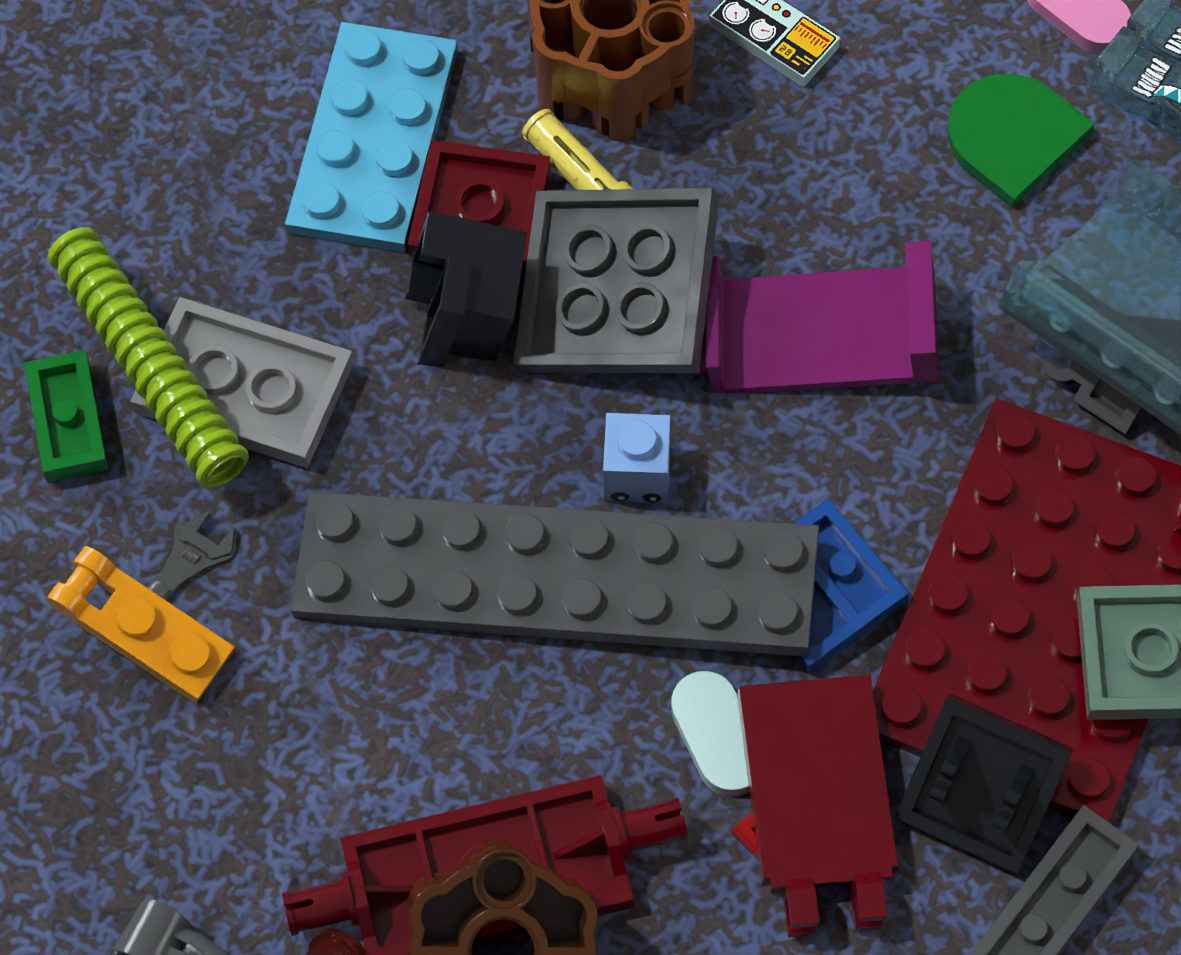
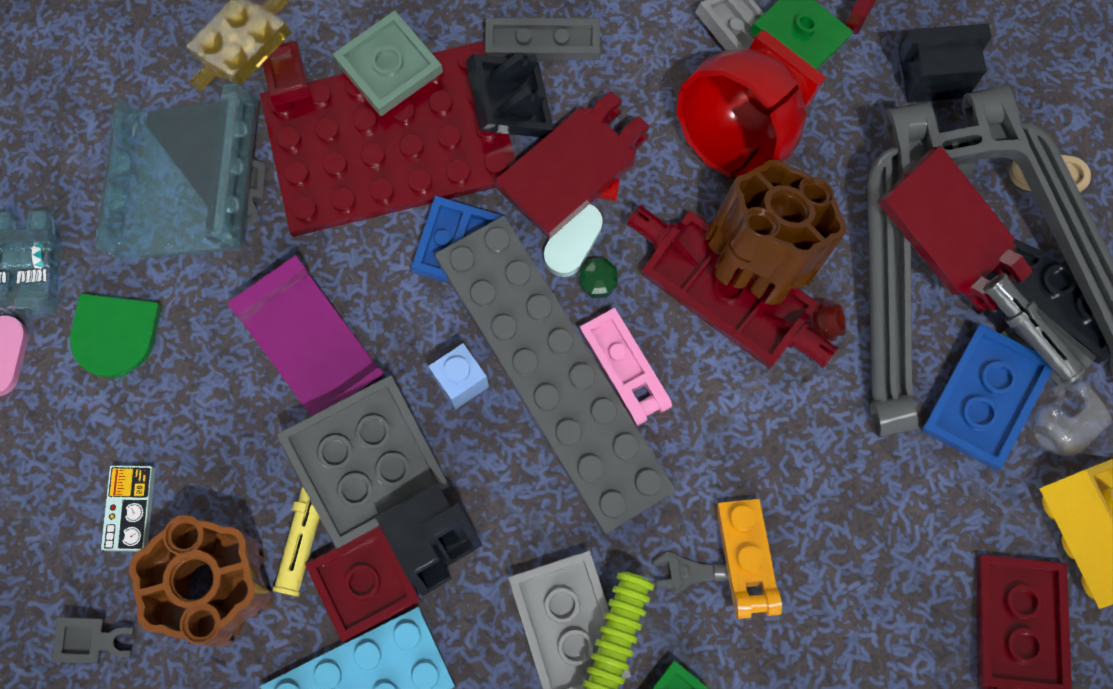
camera: 130 degrees left, 10 degrees up
(494, 666) = (624, 365): none -> bright pink plate
(638, 724) = (598, 278): none -> dark green tile

